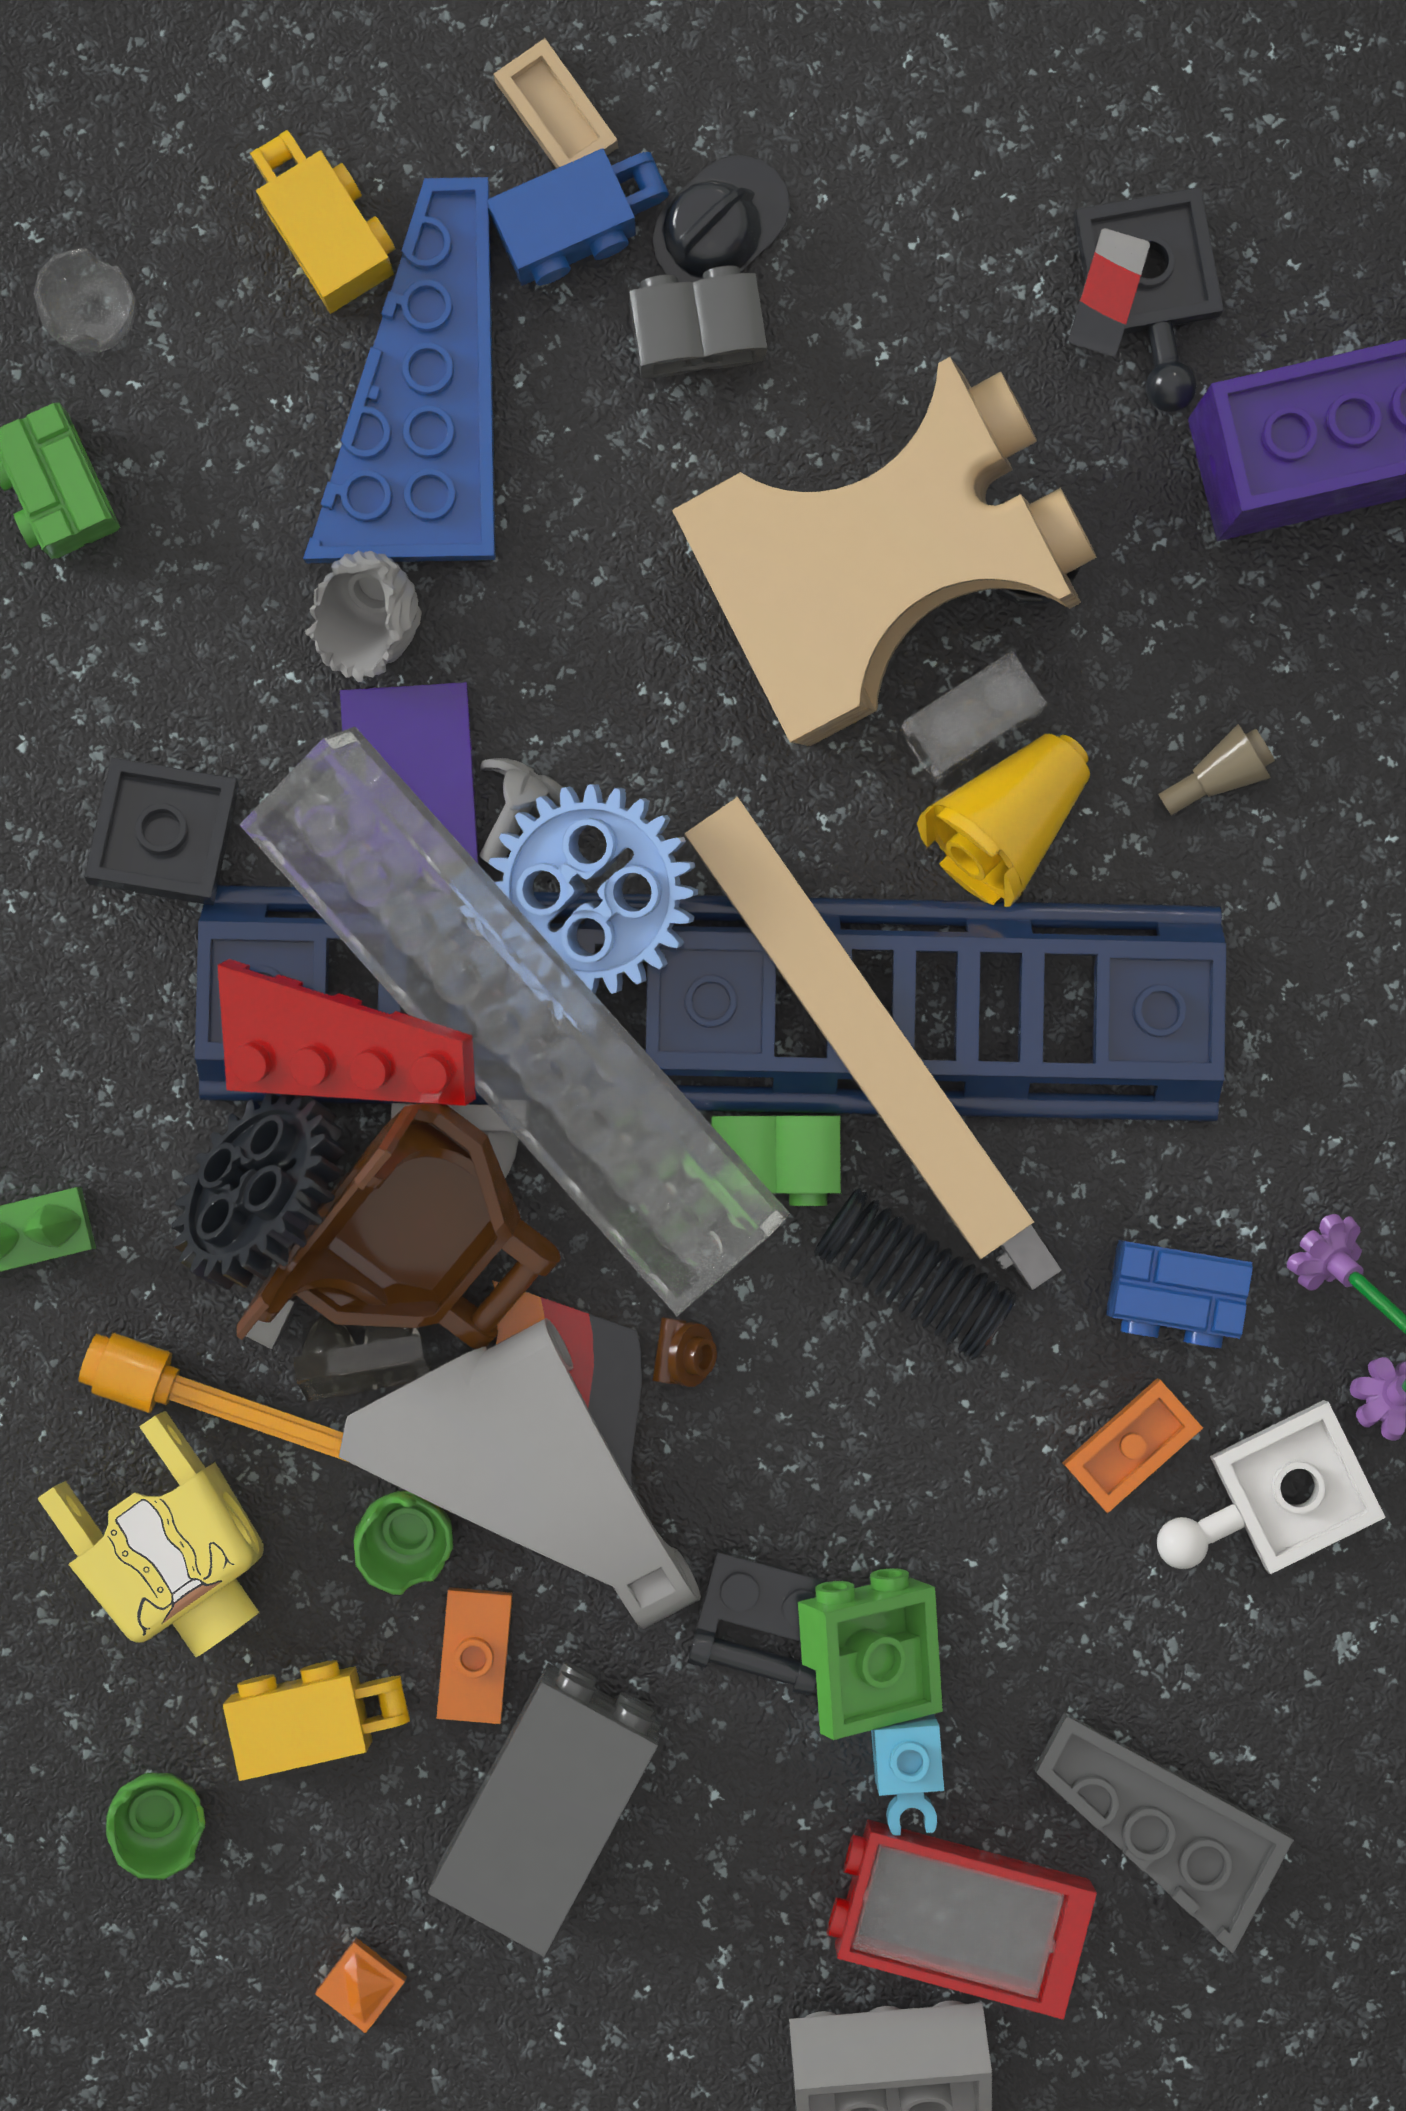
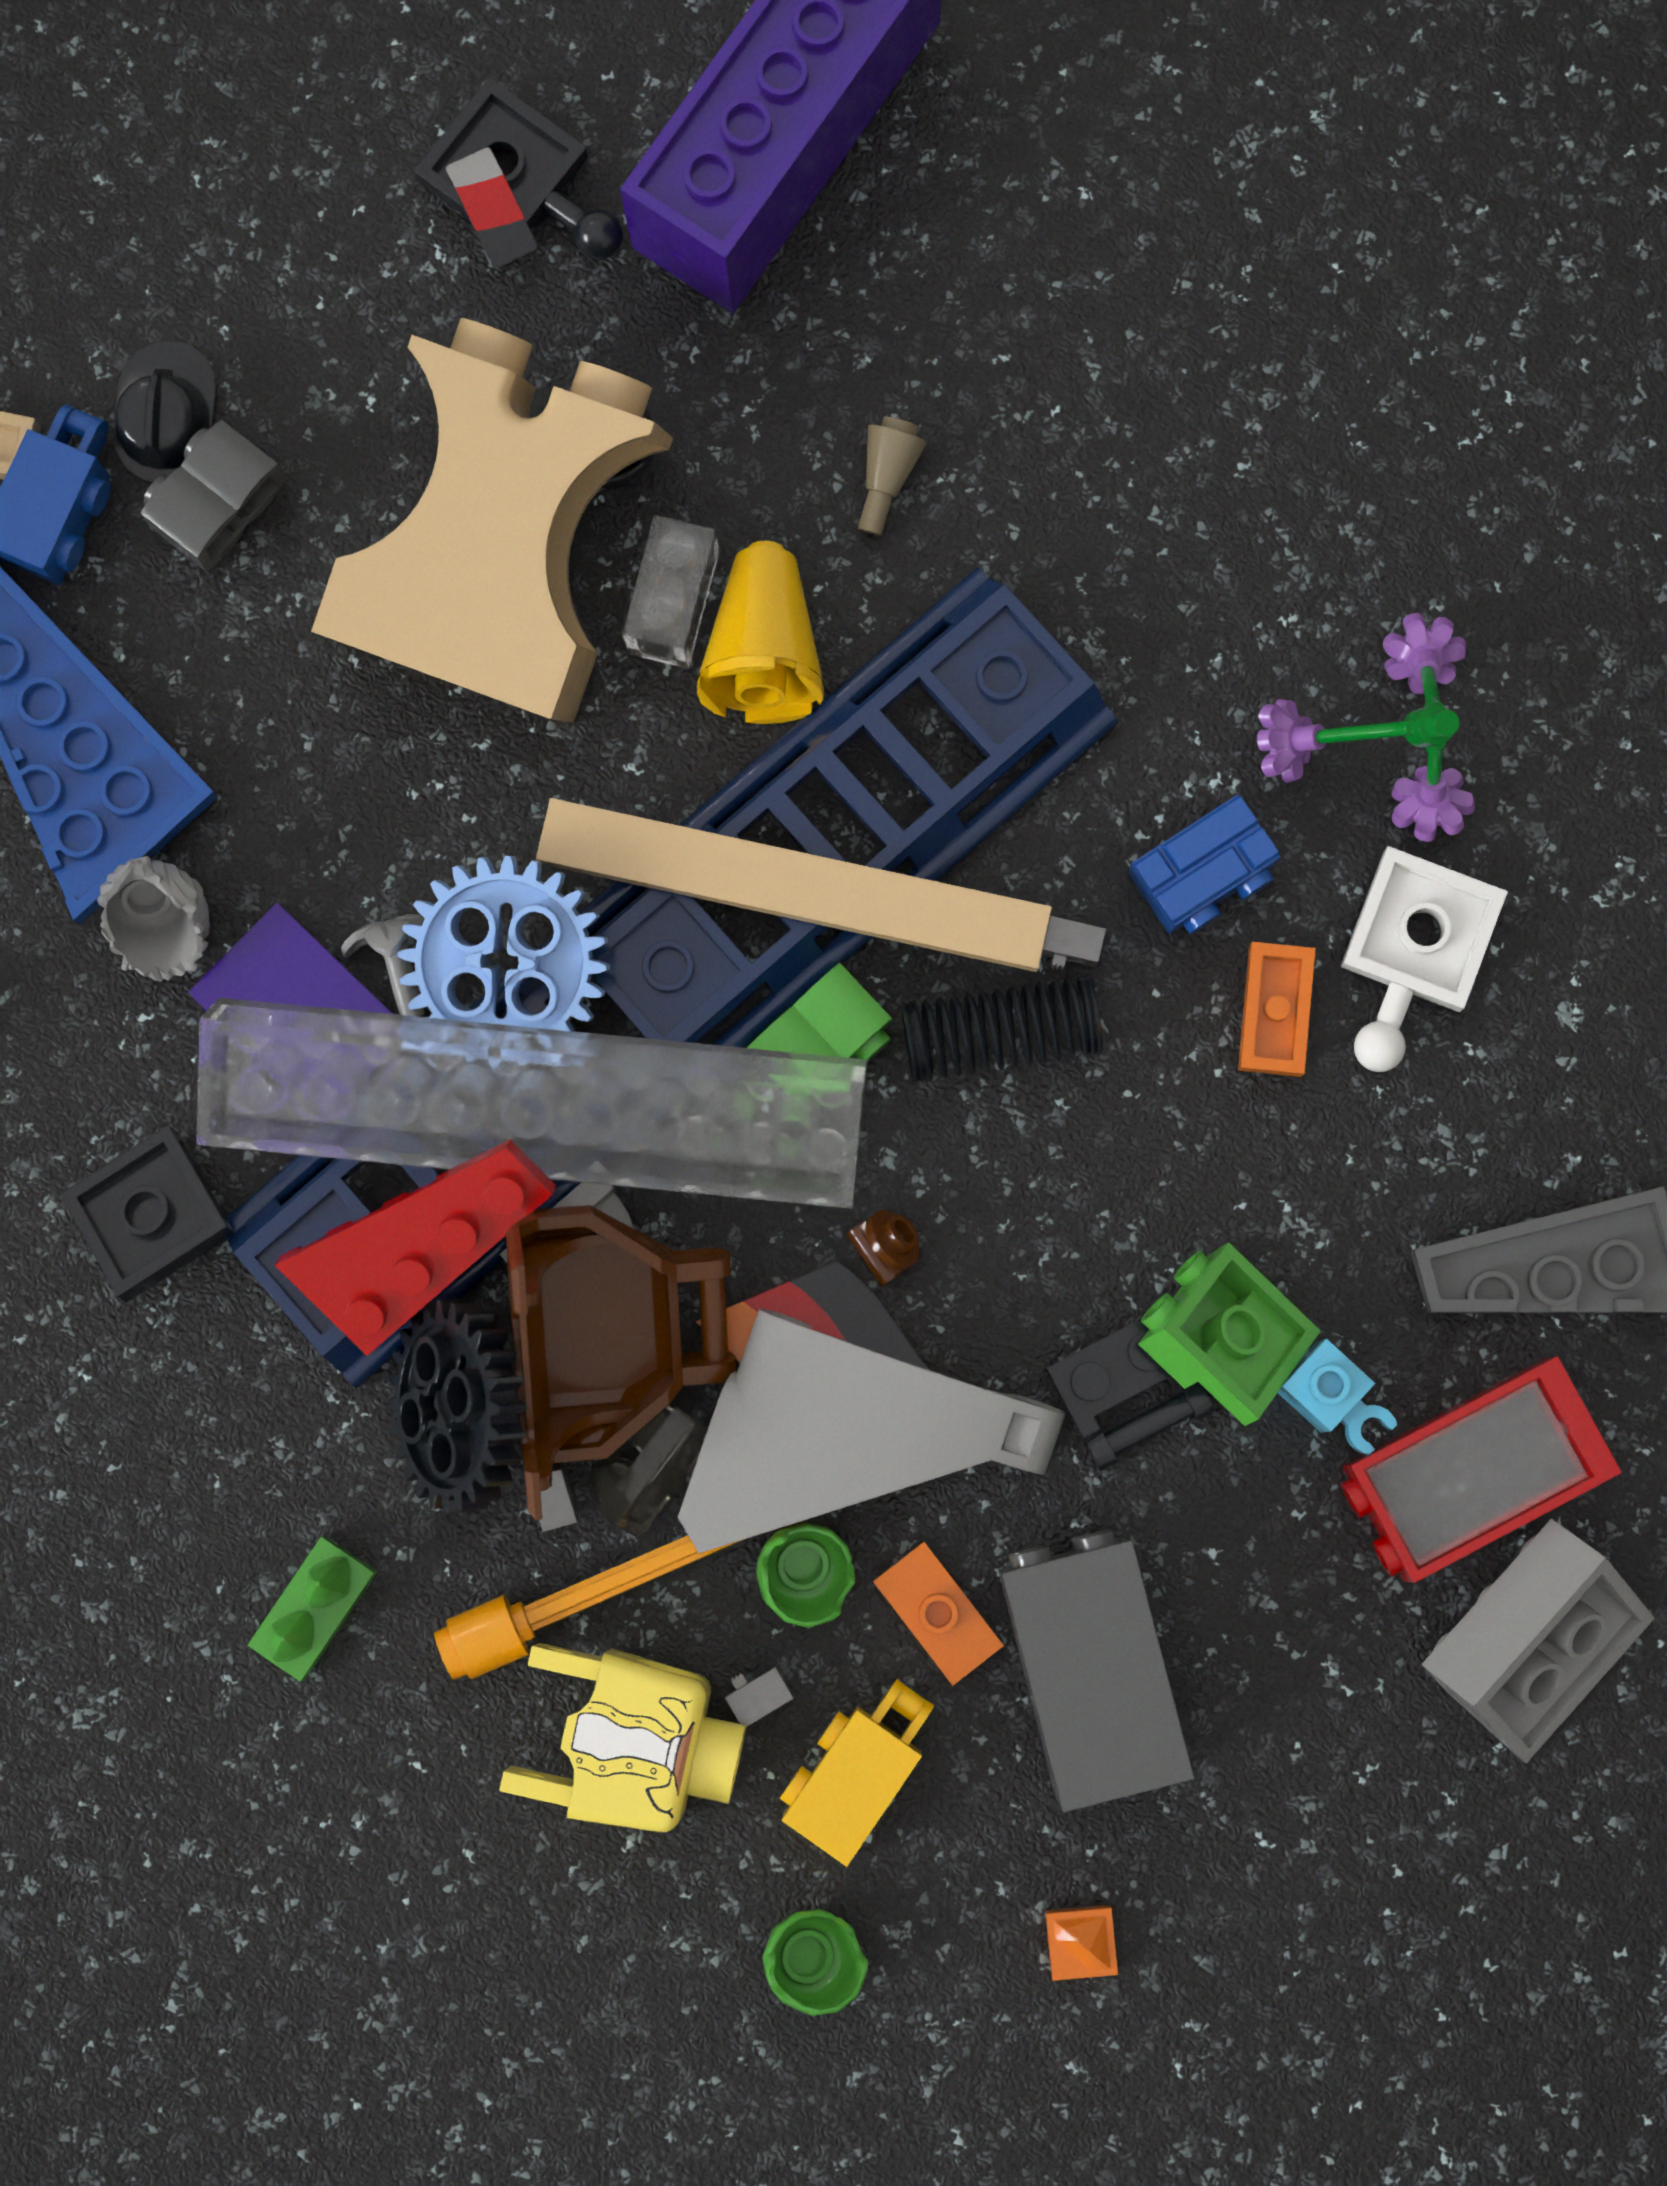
camera: 30 degrees left, 5 degrees down
(289, 1595) = (758, 1697): none -> flat silver piece

